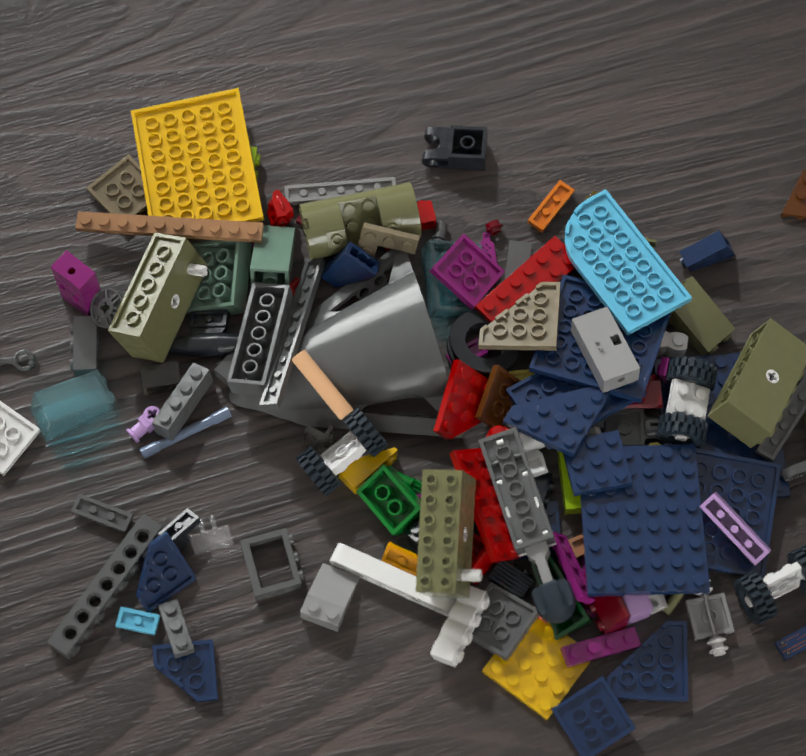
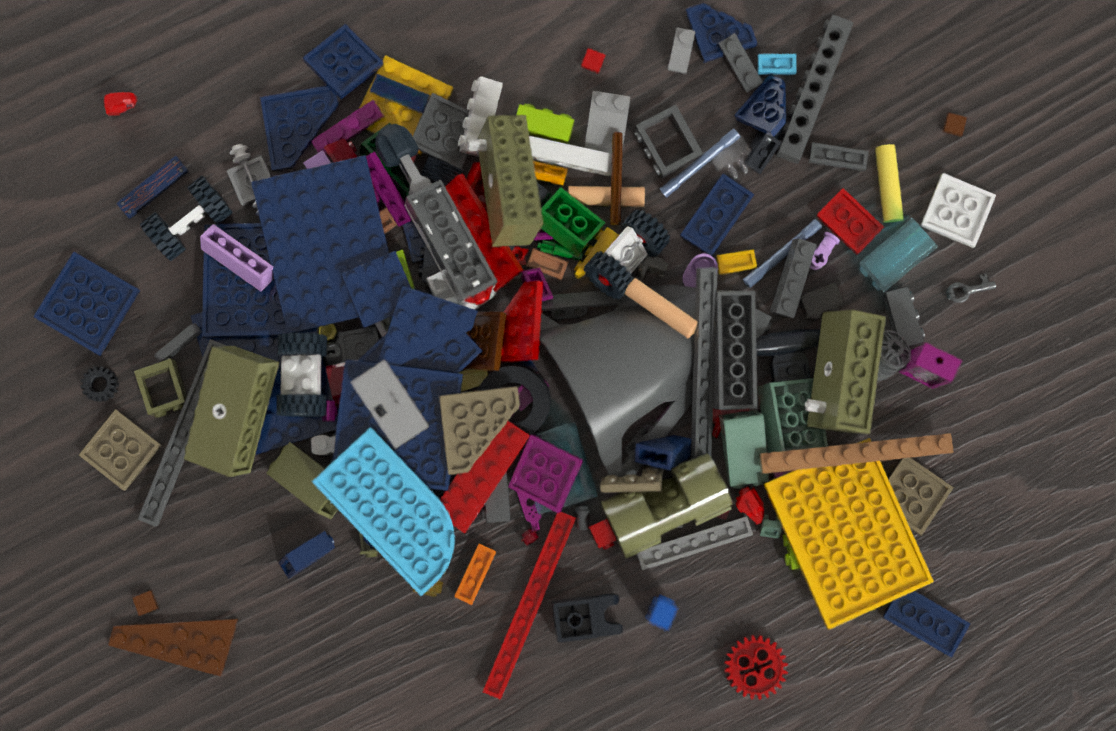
camera: 170 degrees right, 15 degrees up
(59, 477) = (889, 183): none -> light yellow brick
(109, 448) = (850, 221): none -> red plate
(143, 82) = (927, 622): none -> dark blue plate
(233, 435) = (736, 262): none -> yellow tile
(233, 656) = (681, 50): none -> light grey slope
(240, 482) = (717, 215): none -> dark blue plate
(267, 189) = (770, 528): none -> sand green tile
(271, 430) = (698, 261): none -> lavender cap
(274, 522) = (724, 142): none -> sand blue piece
(308, 65) = (749, 649): none -> red gear
(328, 667) = (593, 60): none -> red tile
(334, 533) = (616, 178): none -> reddish brown axle
(347, 525) = (602, 195): none -> light nougat brick
(387, 128) = (661, 611): none -> blue brick
(395, 609) = (546, 124): none -> lime brick
(414, 467) = (548, 264): none -> nougat tile
(437, 448) = (537, 275): none -> magenta slope
(505, 170) = (529, 605): none -> red plate
(540, 668) = (399, 93): none -> clear blue plate

